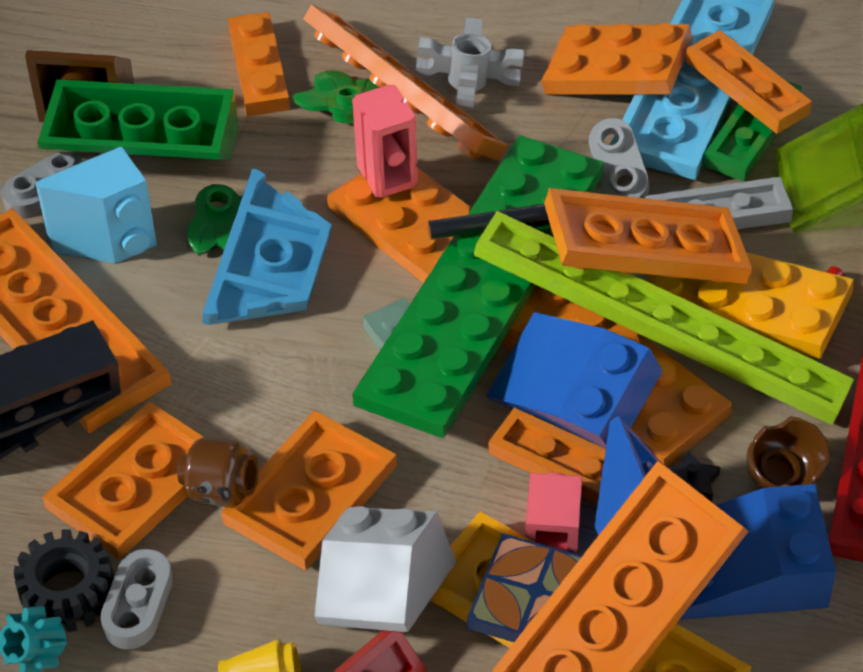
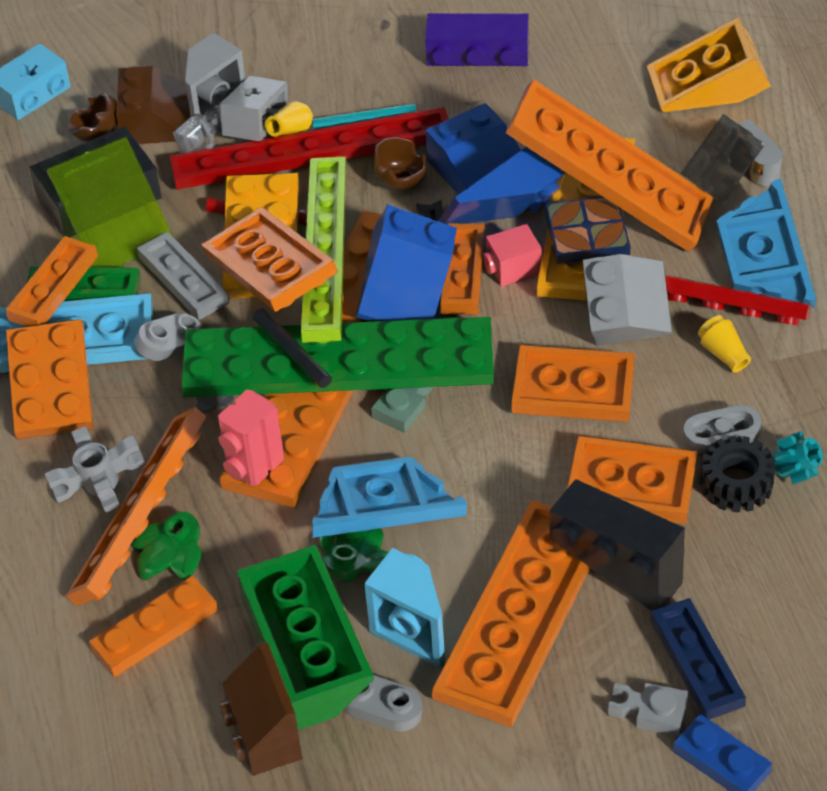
camera: 115 degrees left, 0 degrees up
(218, 472) = (609, 411): reddish brown head -> none

